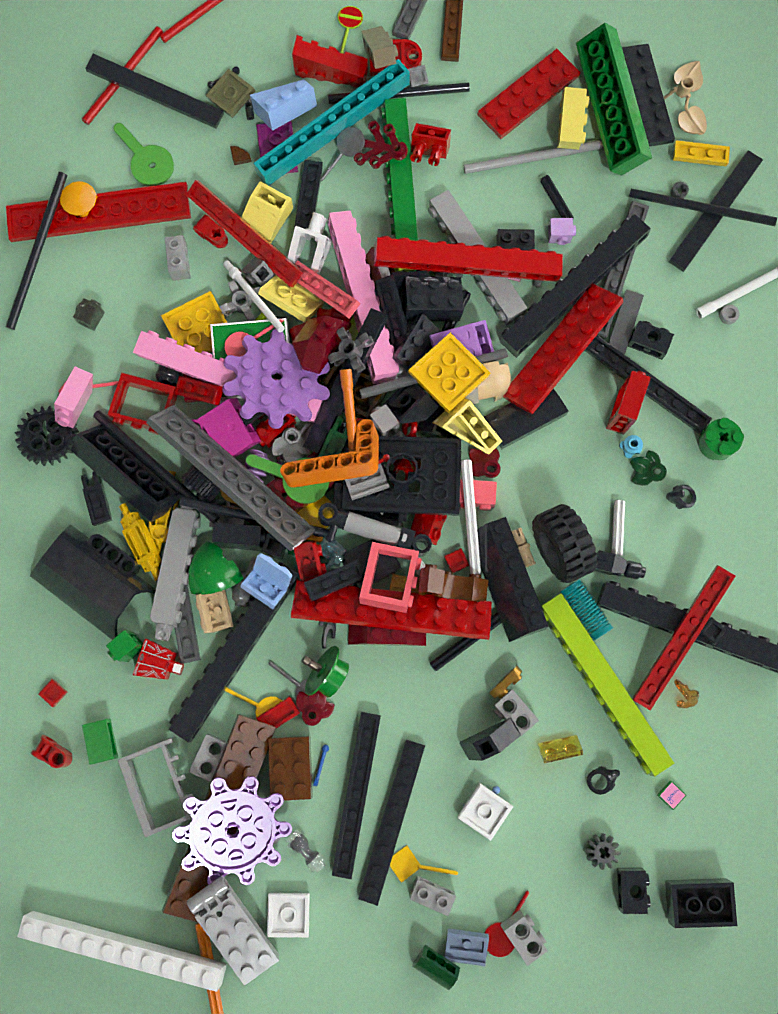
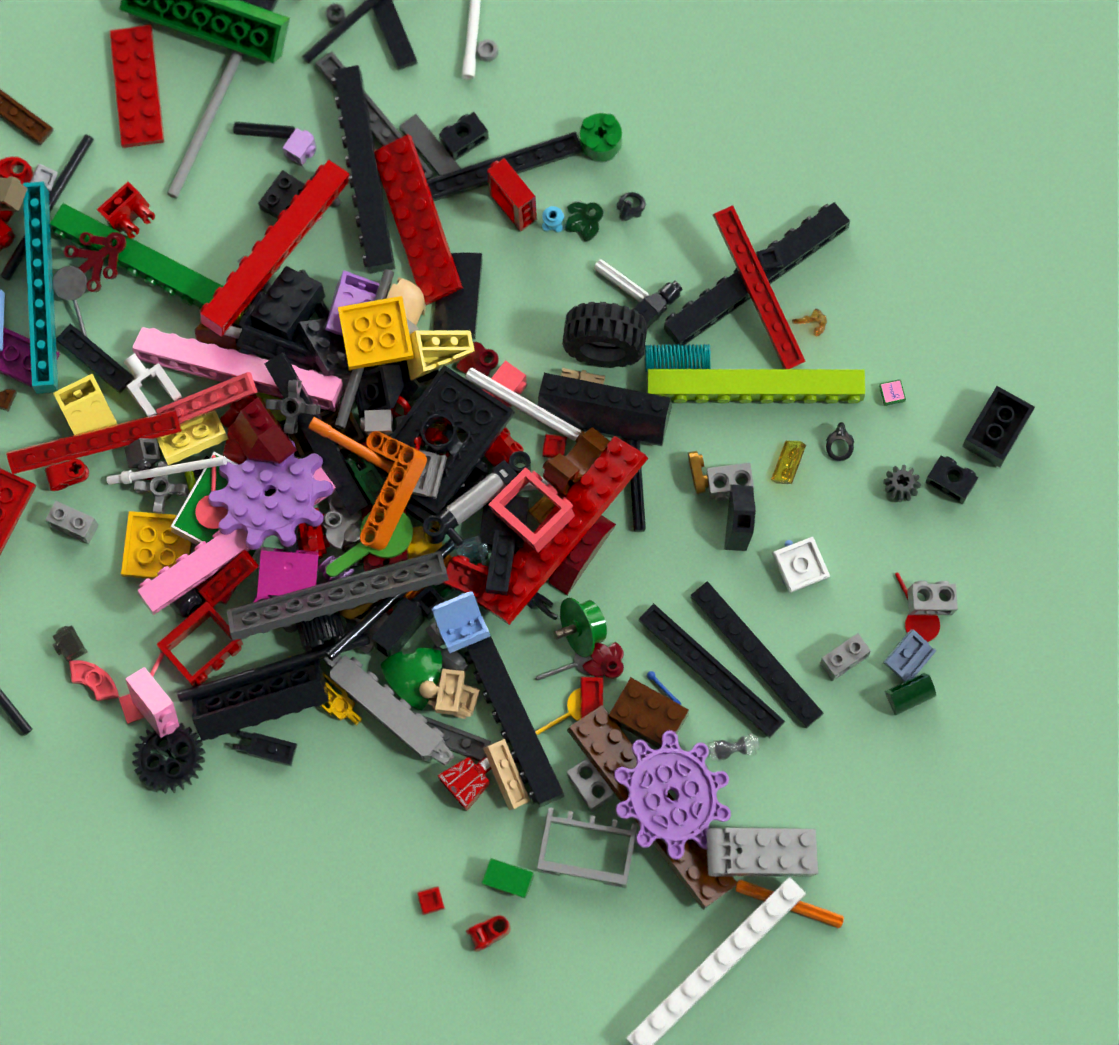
camera: 55 degrees left, 5 degrees down
(76, 347) = (94, 678): none -> coral tile
(89, 578) = (347, 798): black panel -> none
(124, 646) = (433, 798): green brick -> none
(140, 541) = (356, 728): yellow piece -> none
(178, 689) = (506, 774): none -> tan plate
(211, 604) = (448, 691): none -> tan plate
(288, 915) = (780, 799): white plate -> none
(406, 864) = (803, 667): yellow piece -> none
(459, 230) = (239, 239): light grey brick -> none
(572, 118) = (197, 63): light yellow wedge -> none

